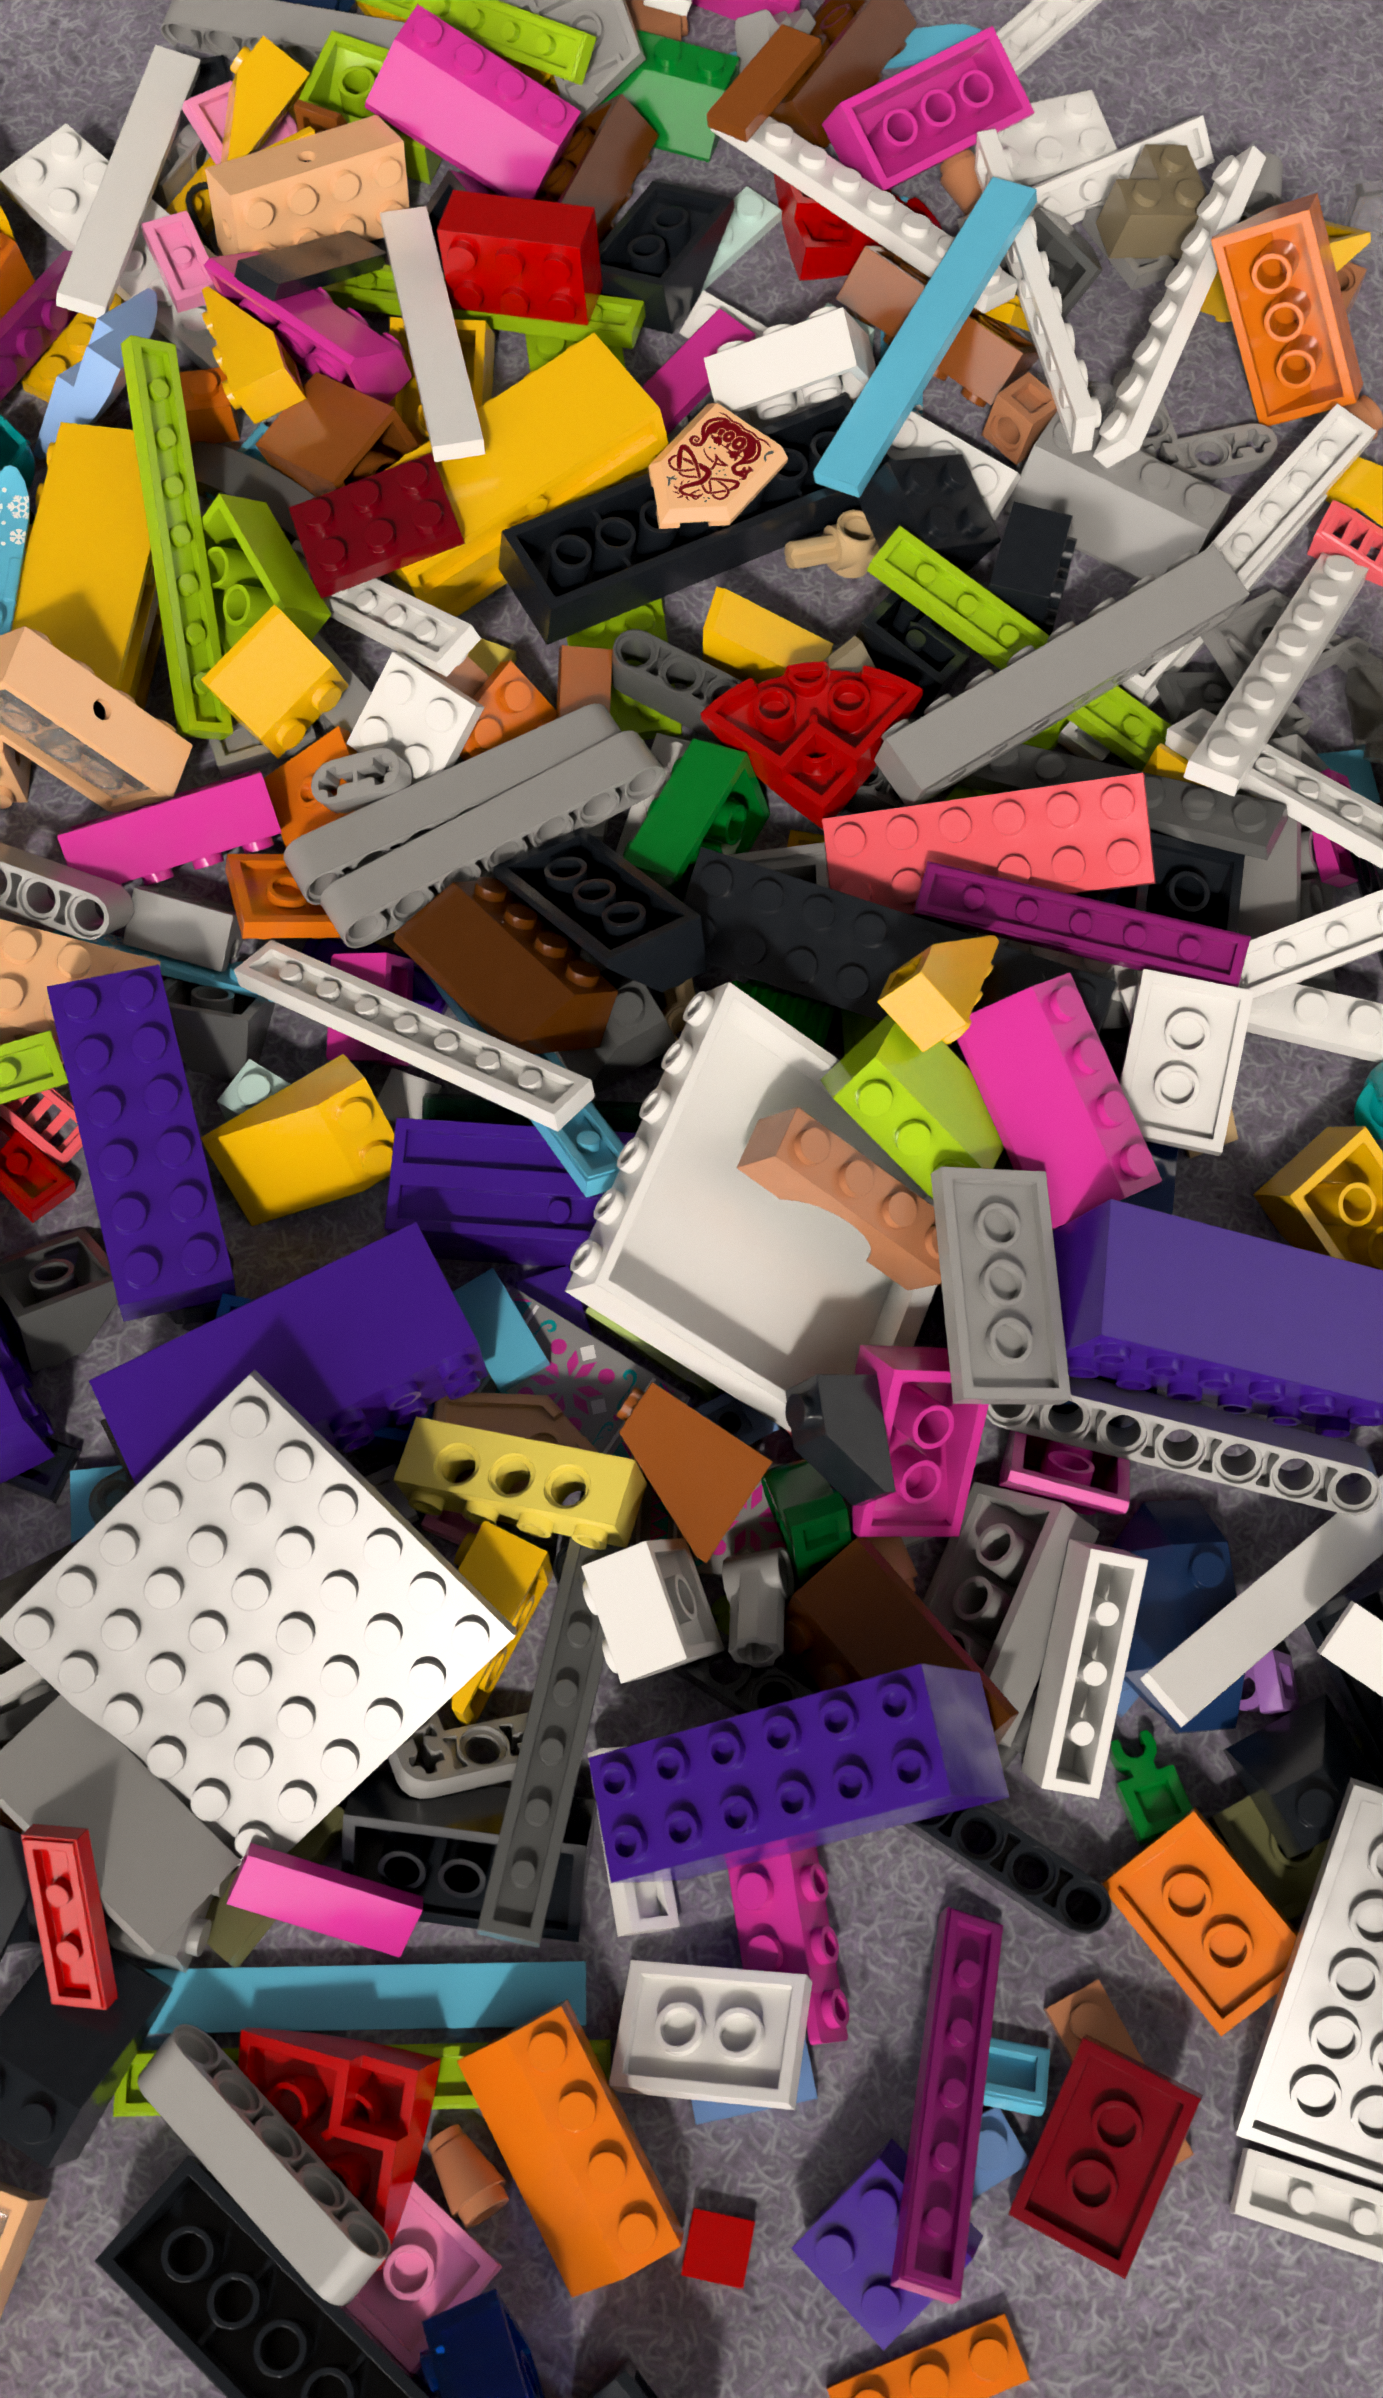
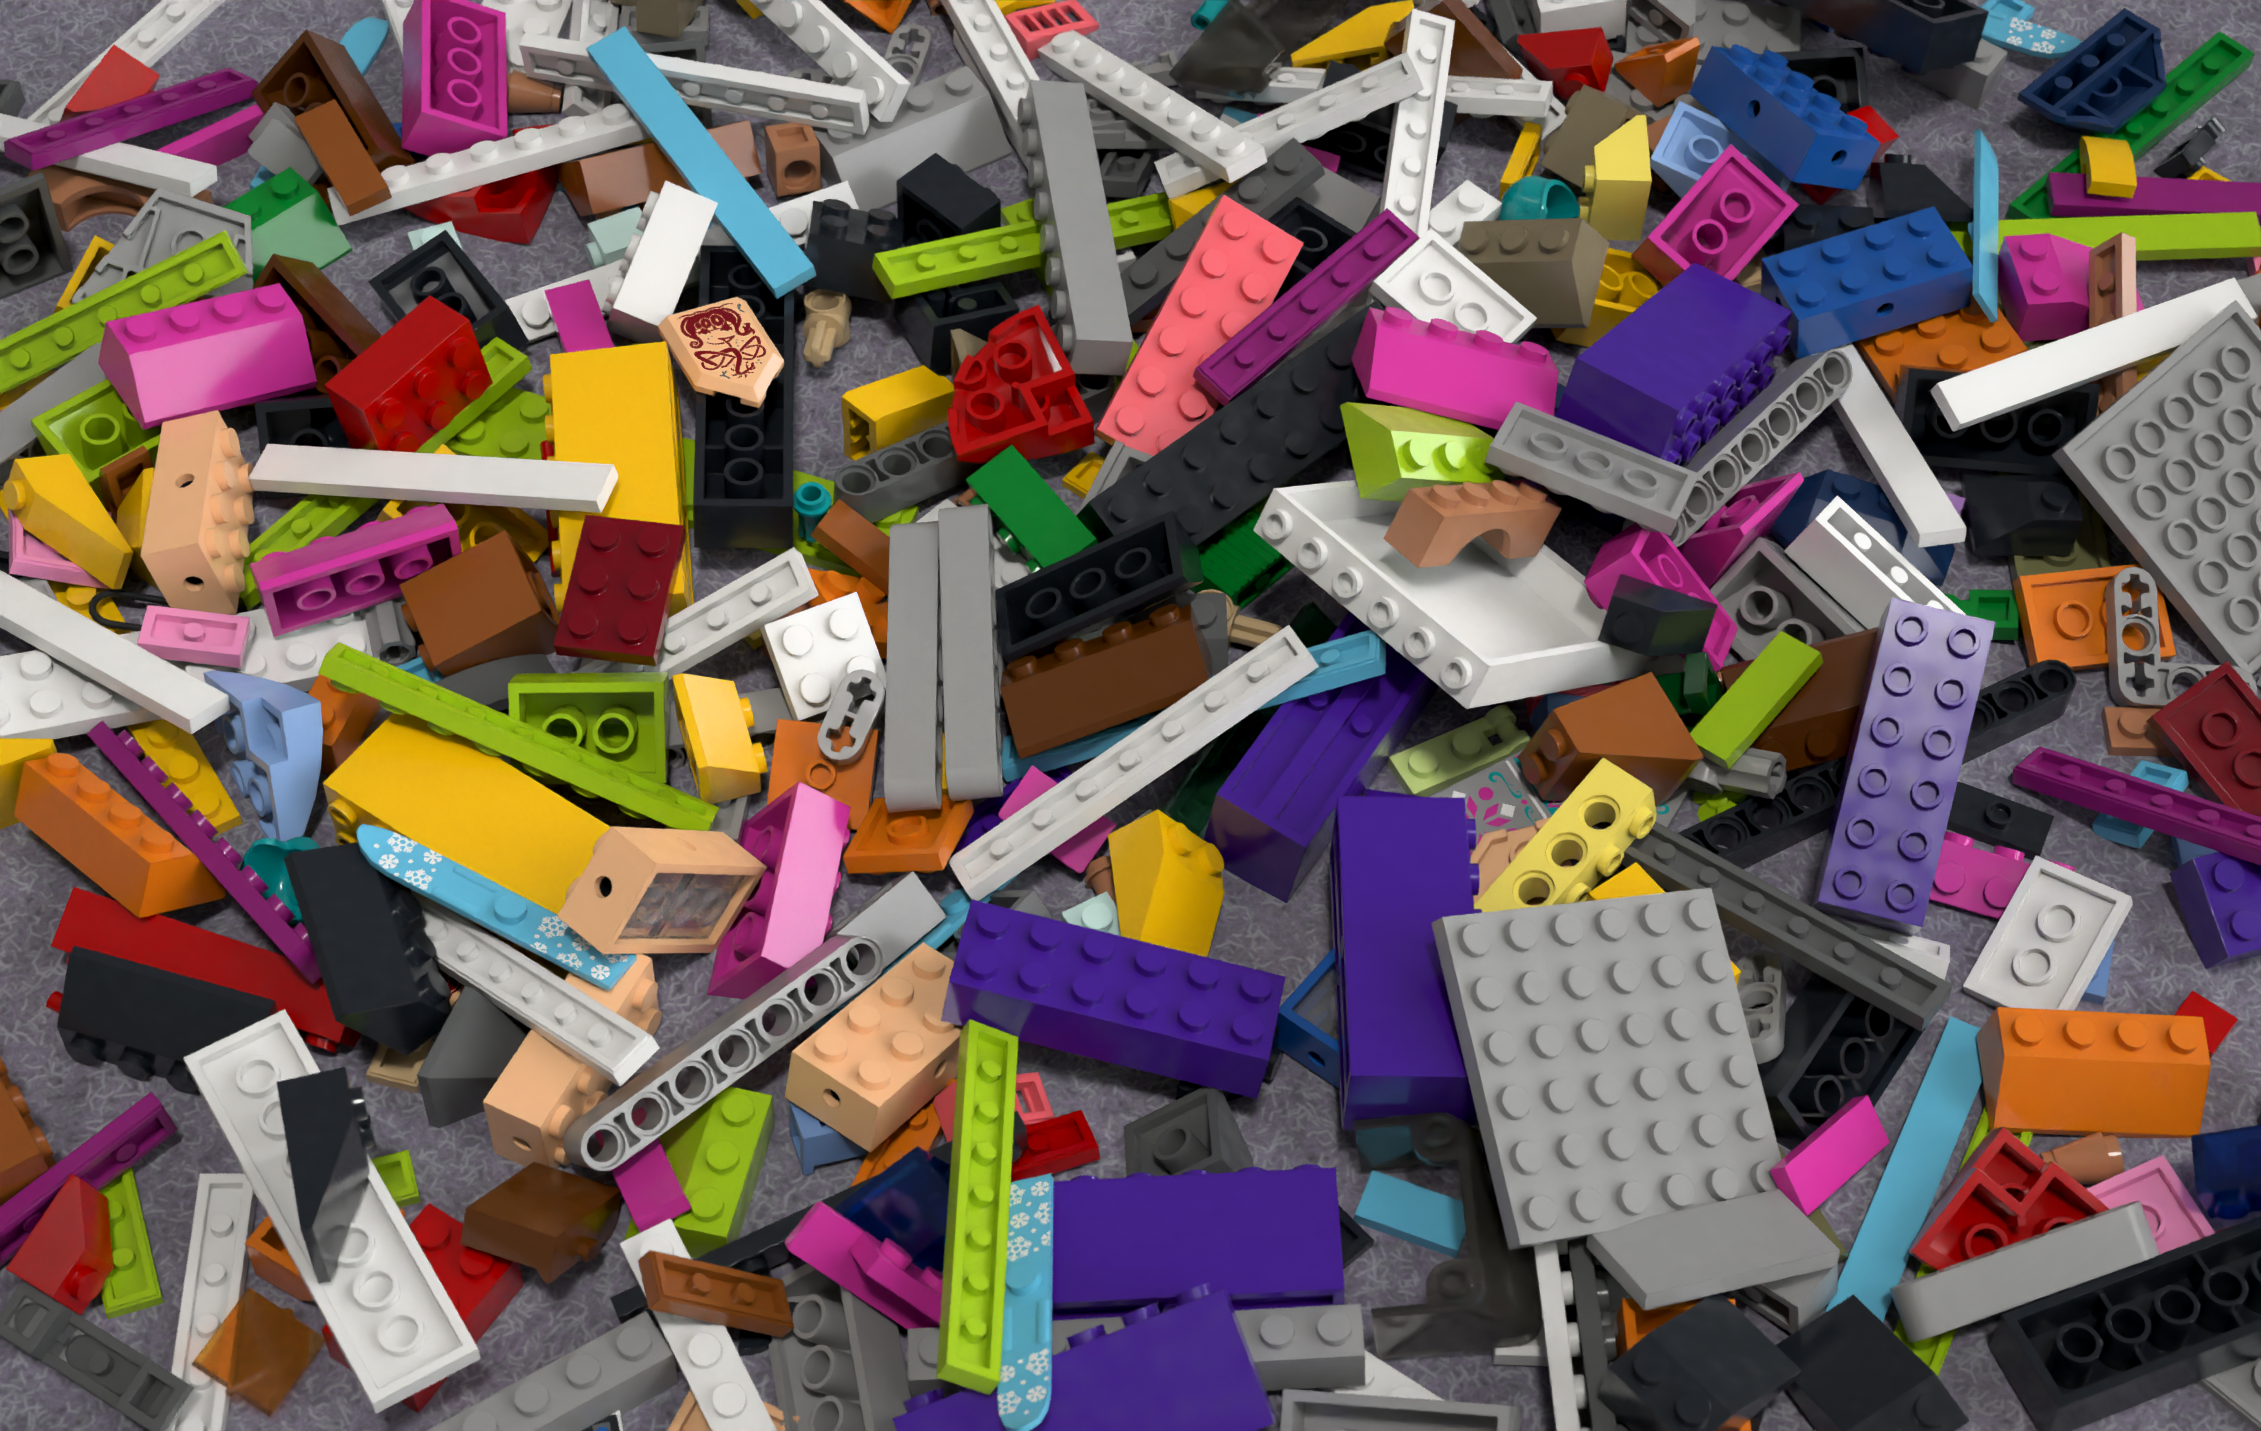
camera: 65 degrees left, 15 degrees down
(69, 1916) = (1784, 1297): red tile -> none
(256, 364) = (363, 615): yellow slope -> none
(309, 265) = (298, 531): black tile -> none
(593, 629) = (811, 504): none -> teal pin
(650, 1608) = (1719, 812): white slope -> none
(825, 1587) = (1755, 699): none -> lime tile
(876, 1917) = (1998, 821): none -> black plate
(938, 990) = (1350, 376): yellow slope -> none
(1172, 2027) = (2153, 673): none -> light grey beam
(1296, 1123) = (1542, 264): none -> dark tan slope

